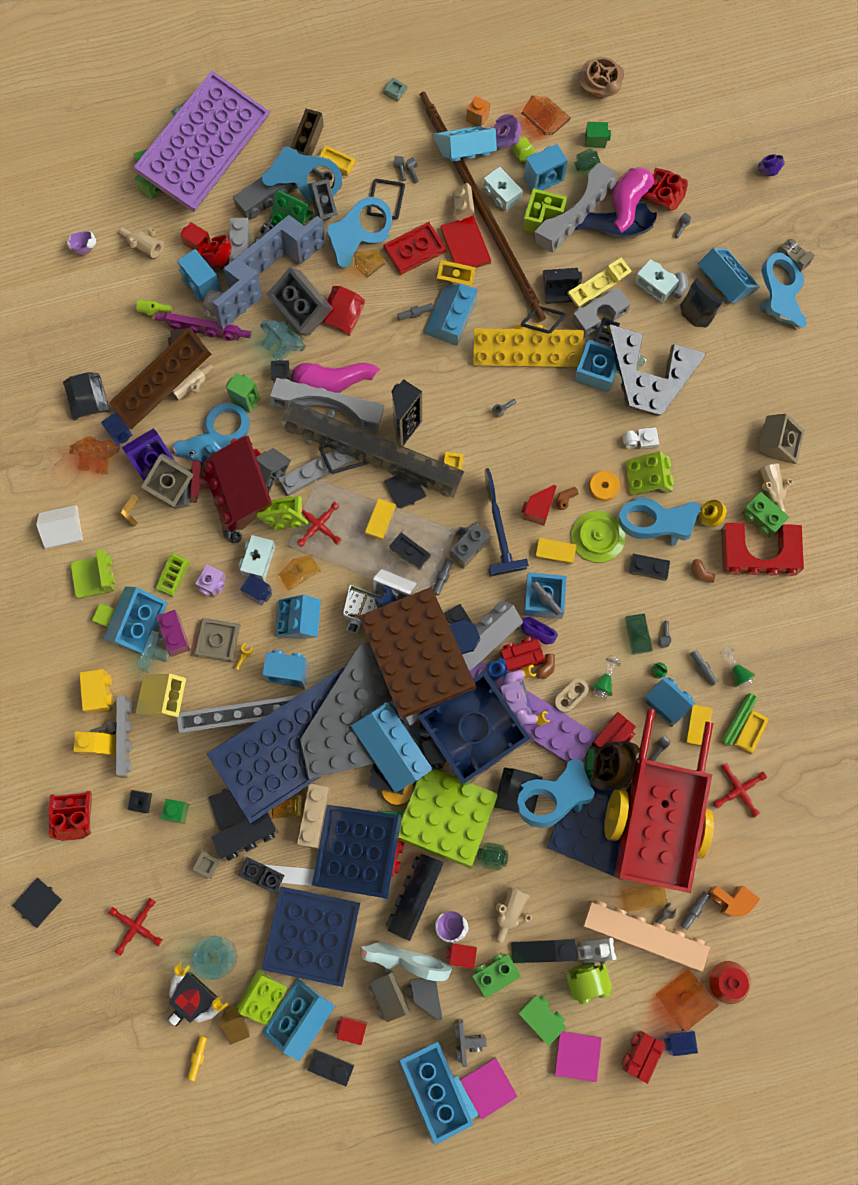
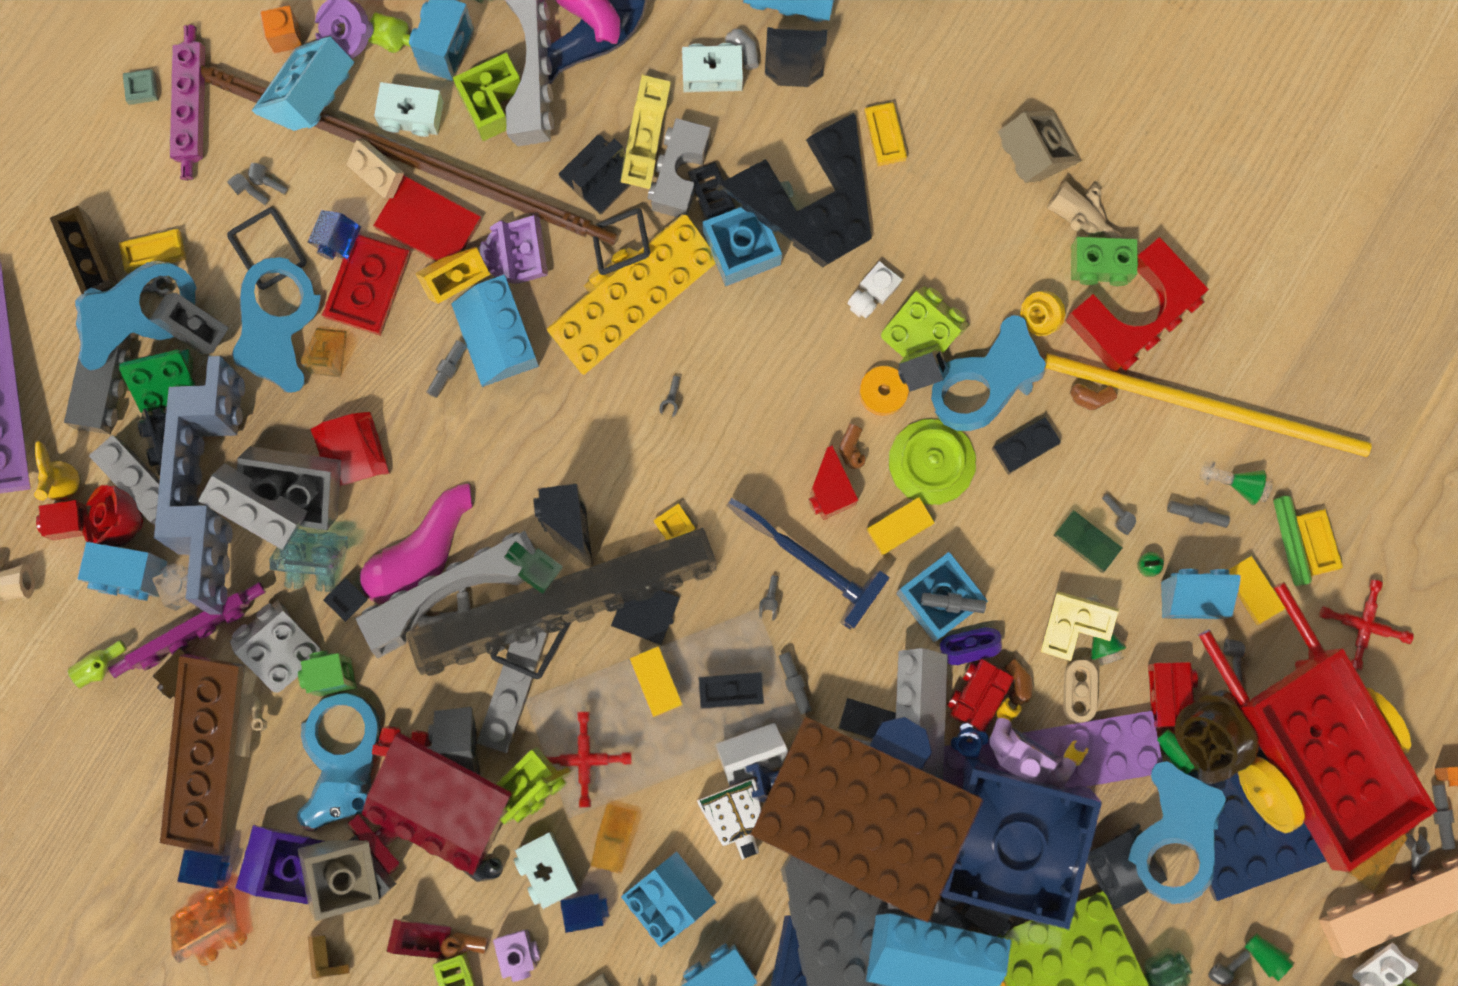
camera: 45 degrees left, 5 degrees up
(85, 394) = (119, 861): black slope -> none
(176, 536) = (417, 938): none -> dark red tile
(193, 557) = (461, 943): none -> dark orange arm
(206, 217) = (55, 479): none -> yellow piece
(231, 360) = (273, 646): none -> light grey bracket
(279, 304) = (270, 519): none -> light grey arch
(372, 422) = (537, 569): none -> dark green plate
(408, 111) = (187, 103): none -> magenta plate
(419, 214) = (334, 235): none -> clear blue brick
(469, 545) = (794, 615): dark grey brick -> none
(493, 286) = (515, 250): none -> medium lavender slope
(517, 882) = (1224, 975): none -> dark grey hand
(548, 895) = (1270, 957): none -> green cone
(597, 658) = (1076, 615): none -> light yellow plate
(631, 488) = (923, 368): none -> black brick
(712, 375) = (885, 134): none -> yellow tile
(756, 624) = (1207, 405): none -> yellow piece

